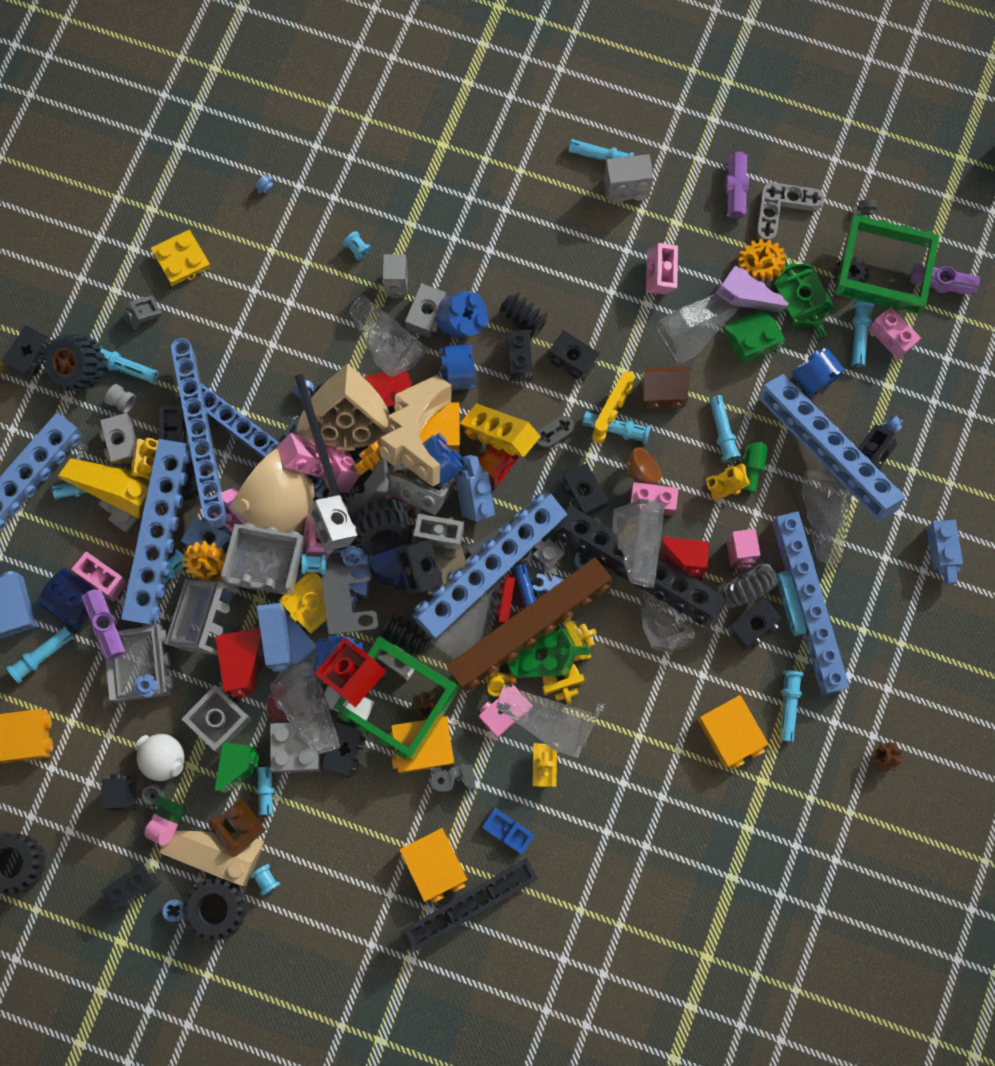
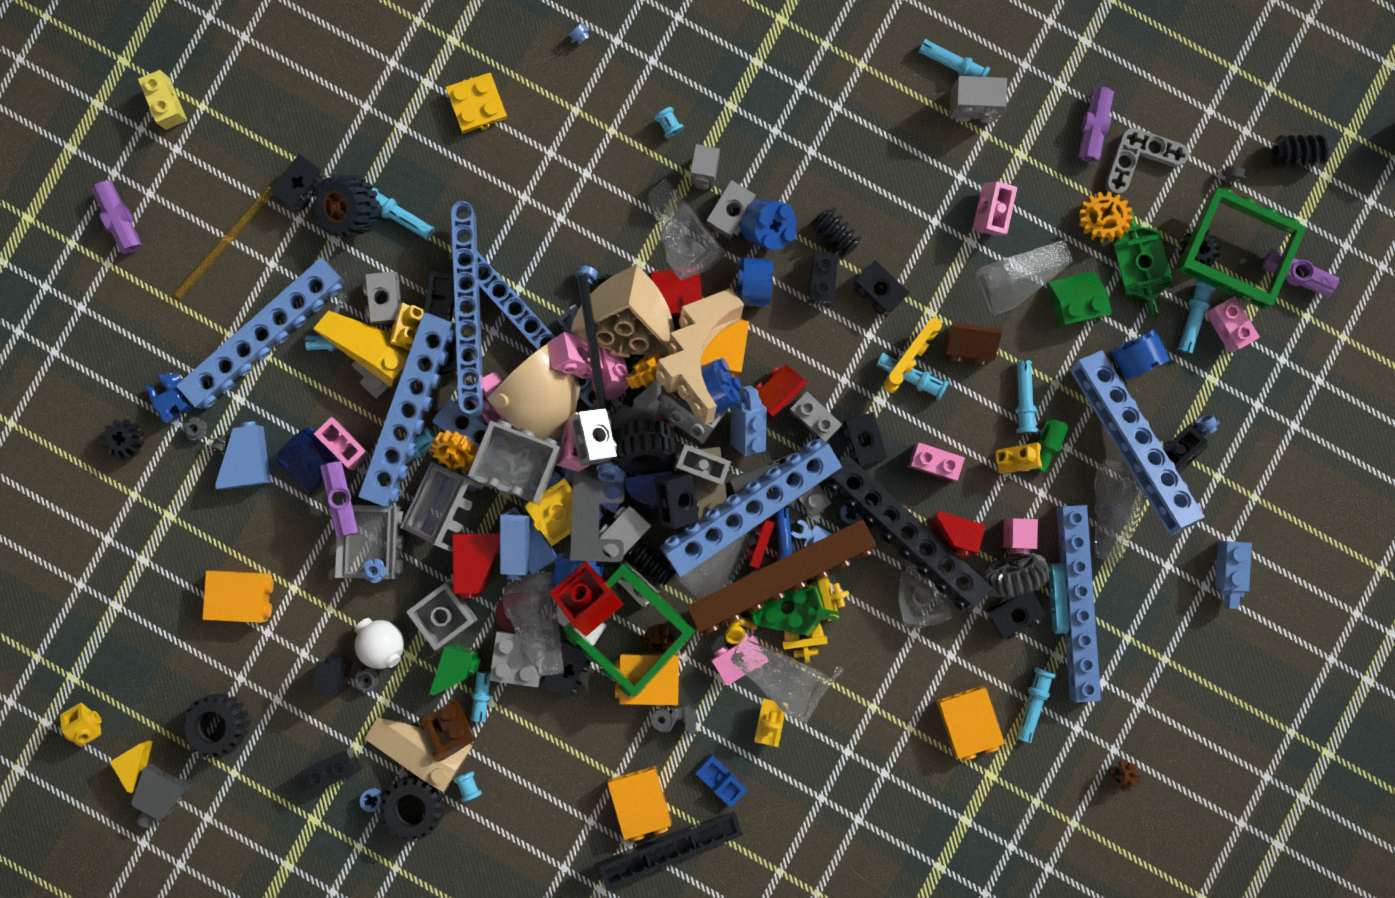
camera: 10 degrees right, 10 degrees up
(31, 661) = (261, 519): medium azure pin -> none
(118, 397) = (389, 252): light grey wheel -> none
(142, 311) = (426, 157): dark grey bracket -> none
(164, 821) = (374, 709): leg -> none
(313, 564) = (566, 475): medium azure bush -> none
(381, 601) = (628, 528): none -> light grey brick
(499, 430) = (786, 363): yellow brick -> none
(534, 477) = (815, 417): none -> light grey brick
(557, 437) = (842, 364): dark grey beam -> none
(639, 537) = (913, 503): clear wedge -> none
(643, 467) = (932, 426): dark orange piece -> none
(747, 292) = (1079, 248): lavender slope -> none
(920, 174) = (1301, 148): none -> black piece

